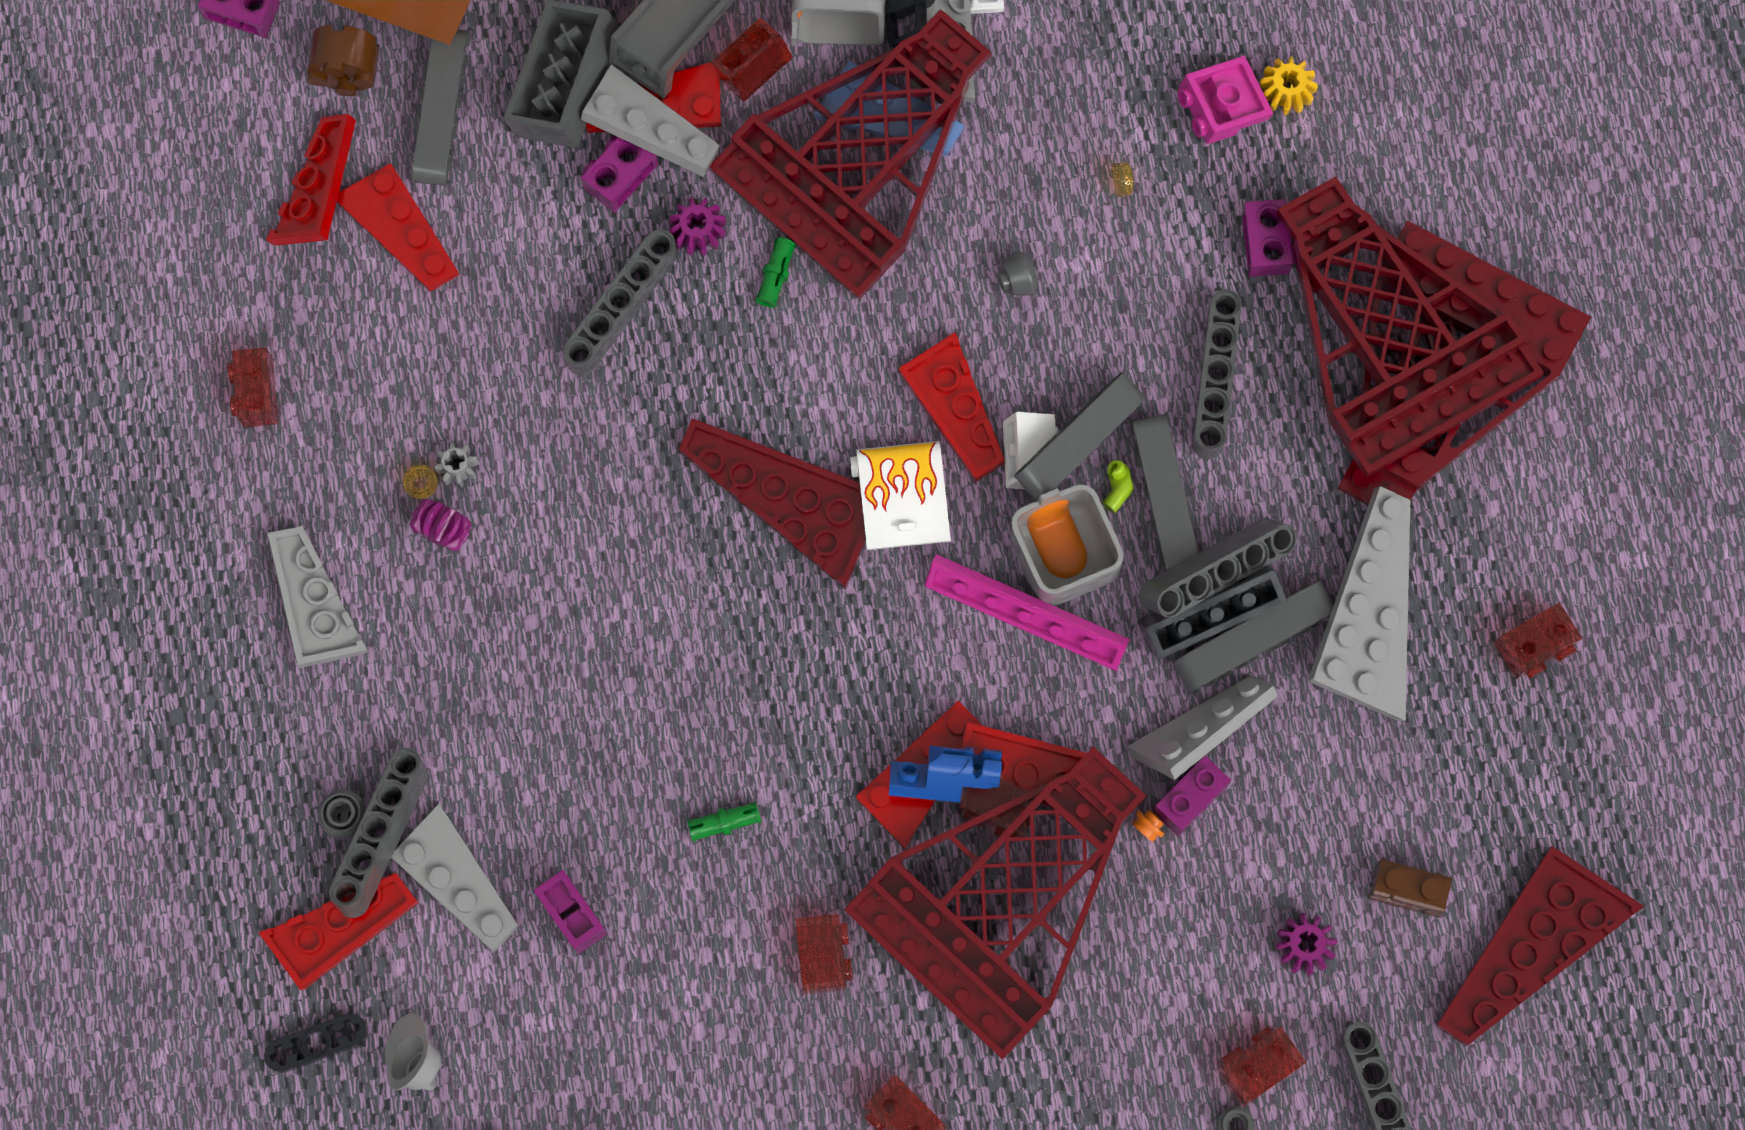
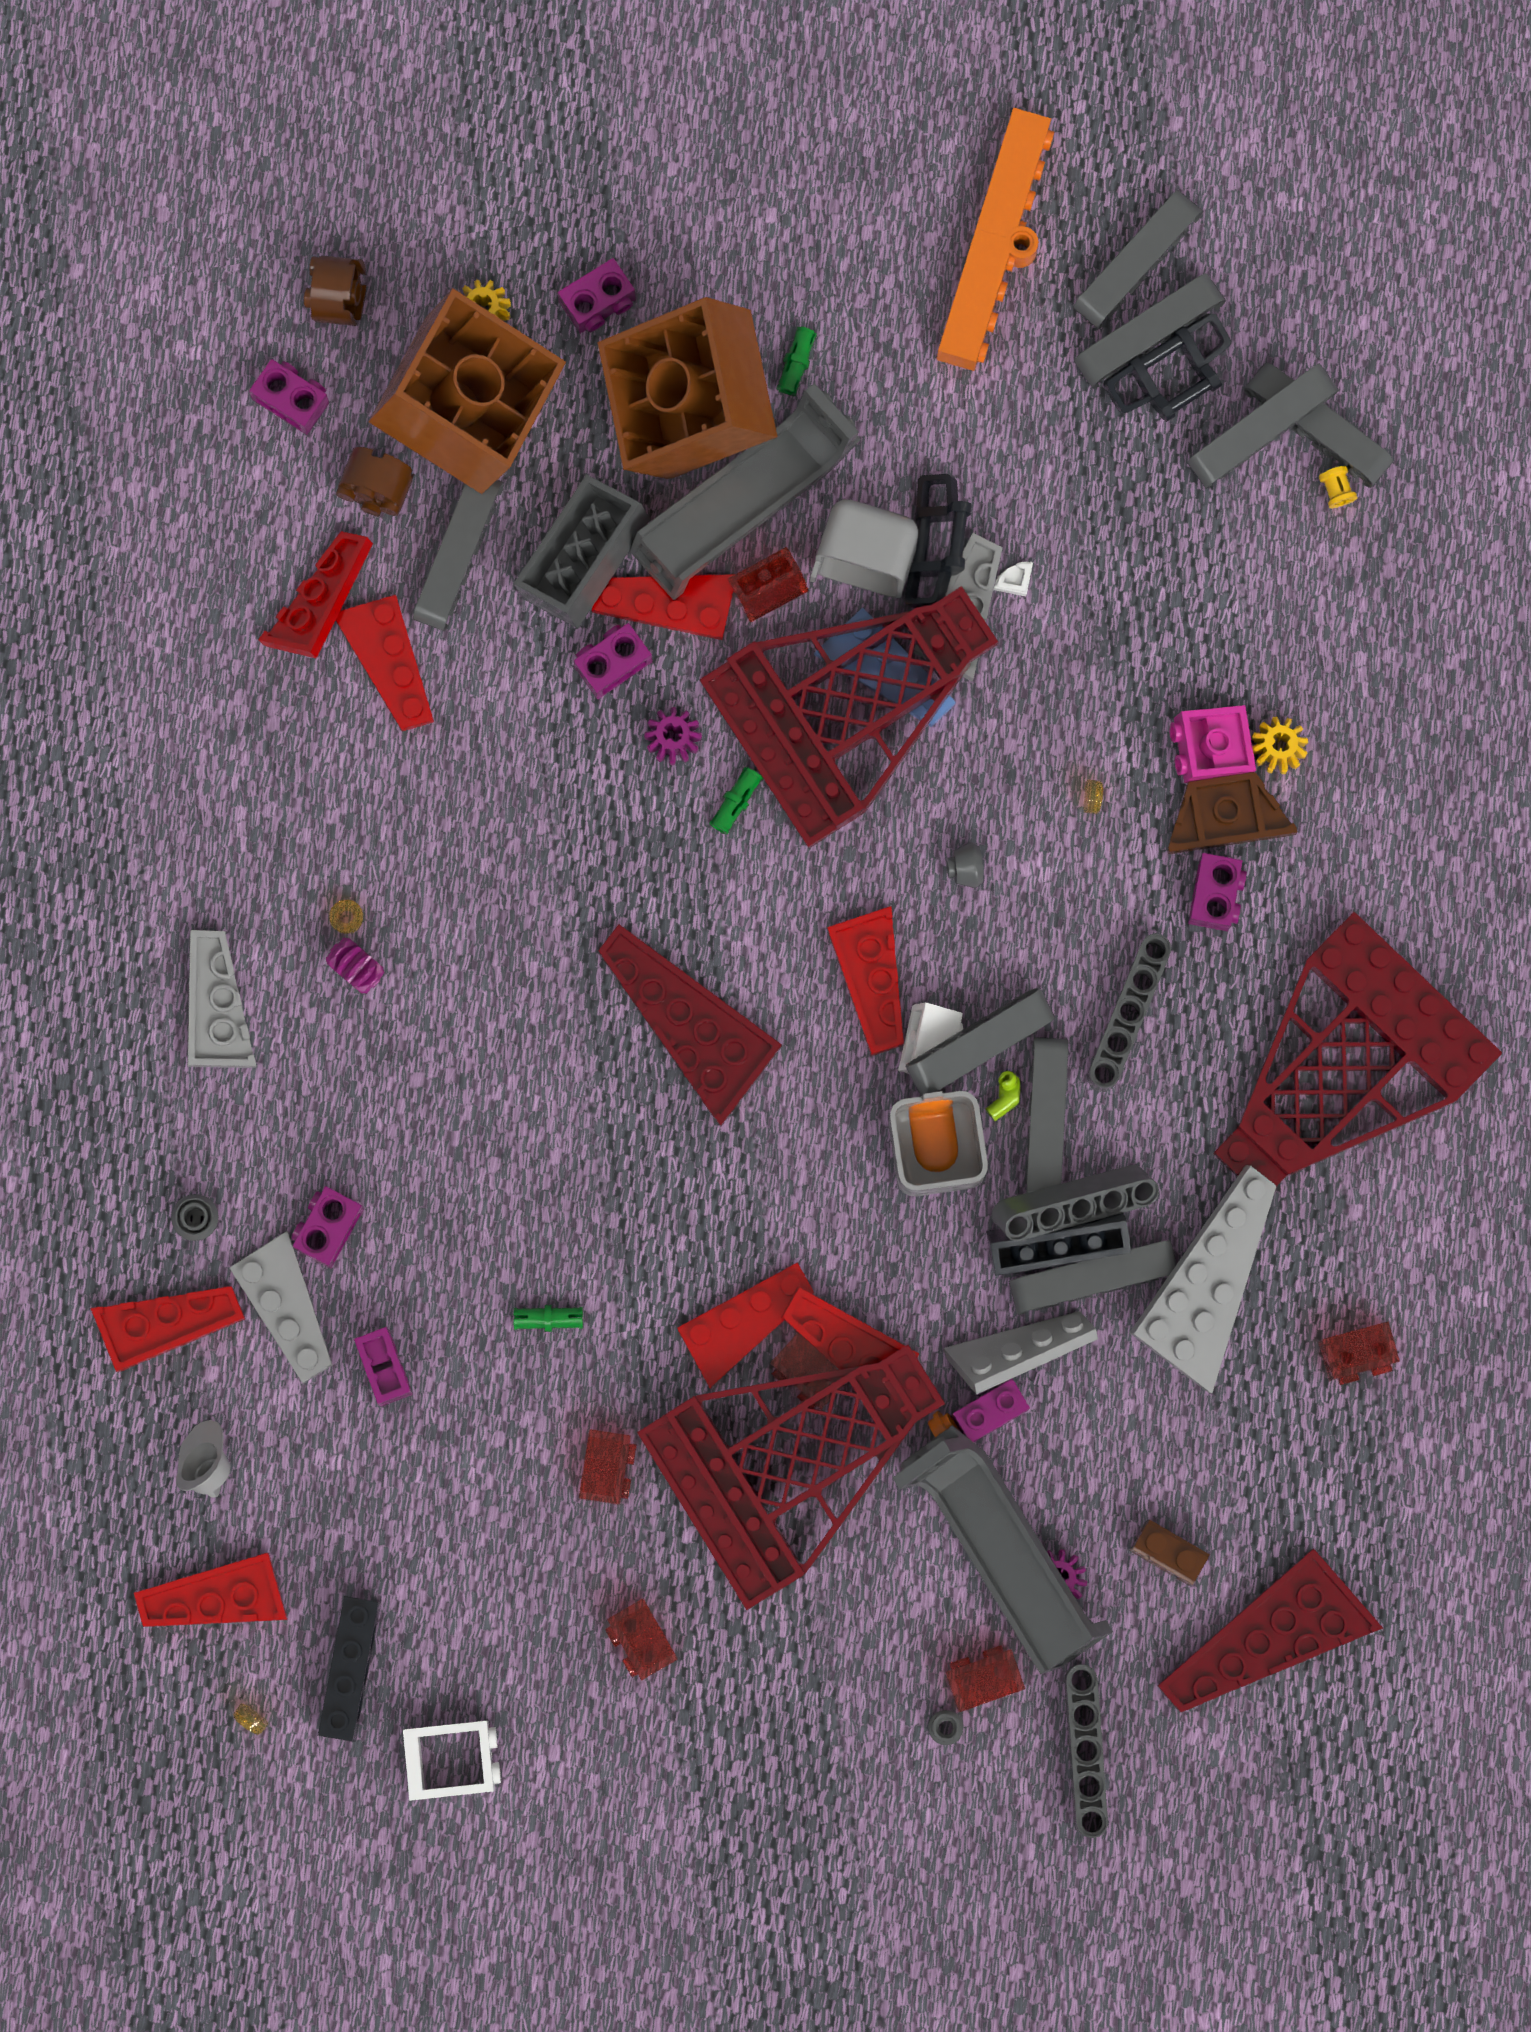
camera: 10 degrees right, 5 degrees up
(254, 387) = (212, 784): clear red brick -> none
(293, 1060) = (92, 1418): black beam -> none
(379, 849) = (224, 1260): dark grey beam -> none
(447, 460) = (391, 916): light grey gear -> none
(488, 789) = (336, 1230): none -> magenta brick
(621, 287) = (588, 777): dark grey beam -> none
(645, 121) = (647, 618): light grey wing -> none
(902, 495) = (797, 1051): white door -> none
(946, 773) = (765, 1331): blue plate -> none
(1026, 612) = (884, 1195): dark pink tile -> none
(1244, 928) = (1003, 1549): none -> dark grey panel
(1256, 162) = (1227, 813): none -> reddish brown wing
(1419, 399) = (1324, 1090): dark red wing -> none

